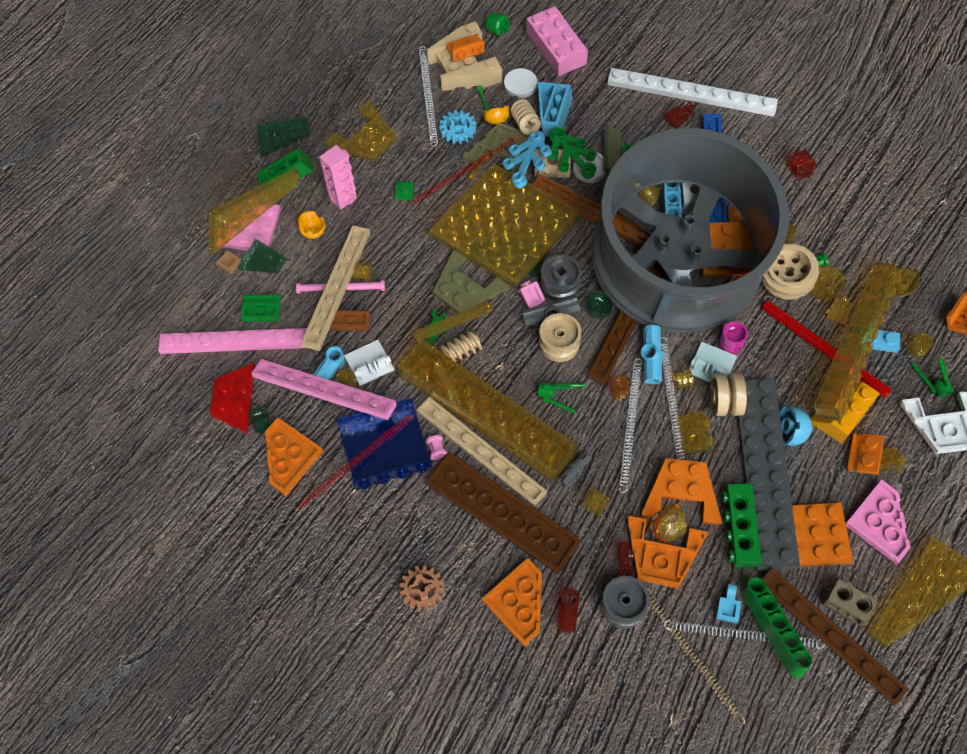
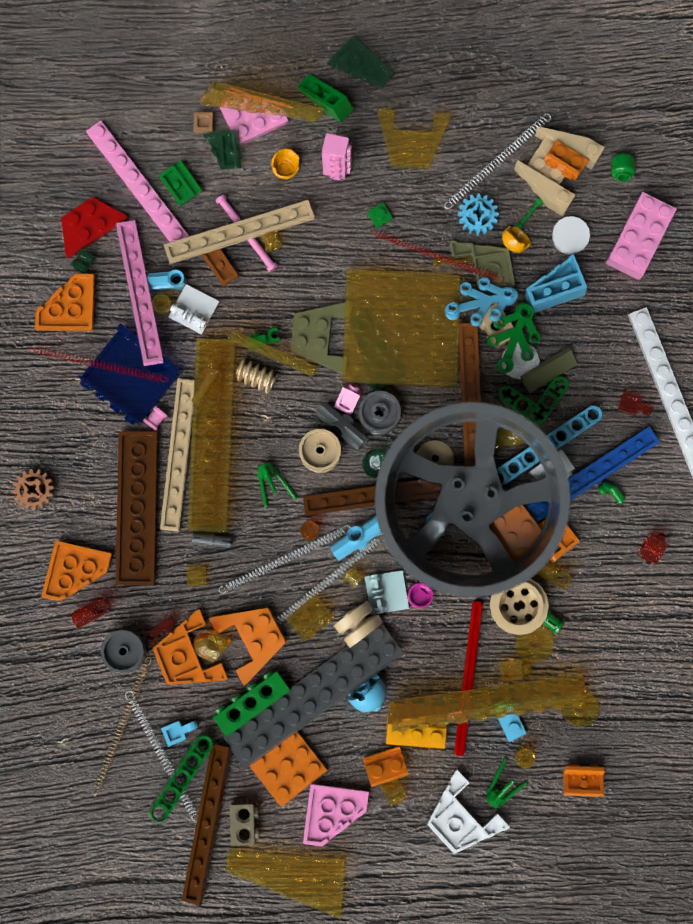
camera: 55 degrees right, 20 degrees up
(525, 116) = (527, 268): tan piece -> none

